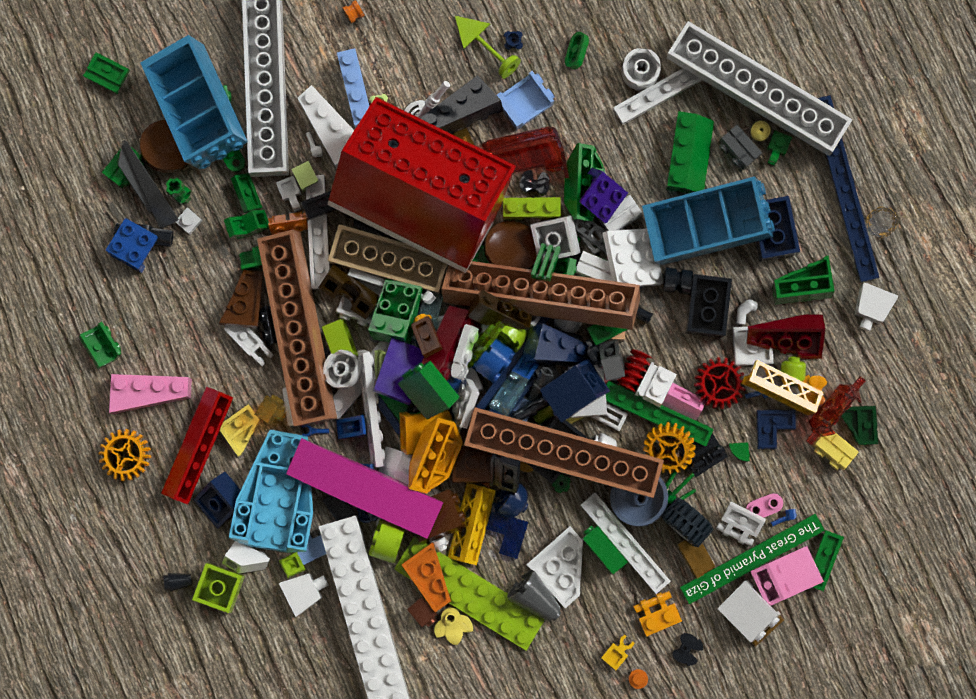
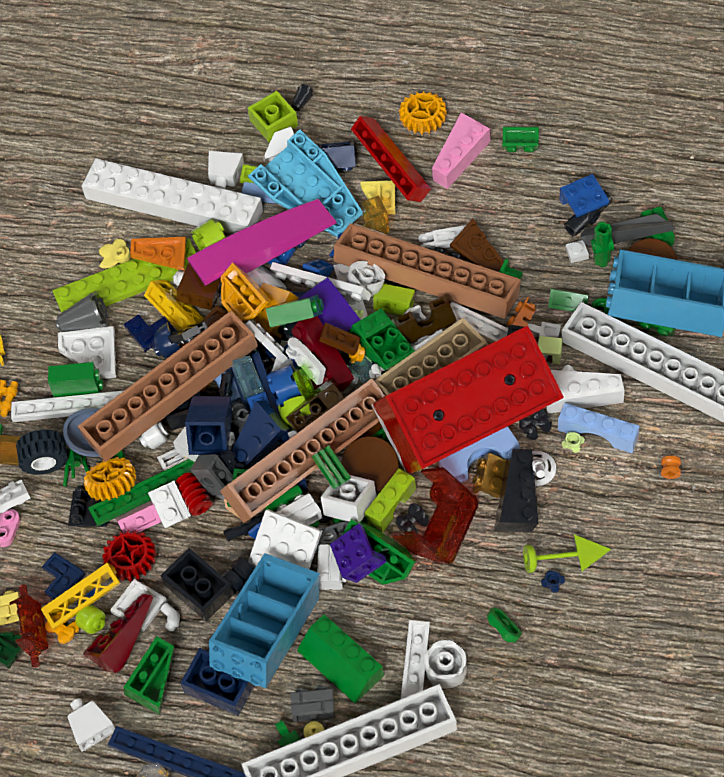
camera: 130 degrees right, 25 degrees down
(247, 224) = (541, 282): green brick -> none
(422, 612) = (139, 231): copper brick -> none
(526, 100) = (490, 554): light blue panel -> none
(566, 266) = (315, 487): green plate -> none
(740, 451) = (64, 538): green tile -> none

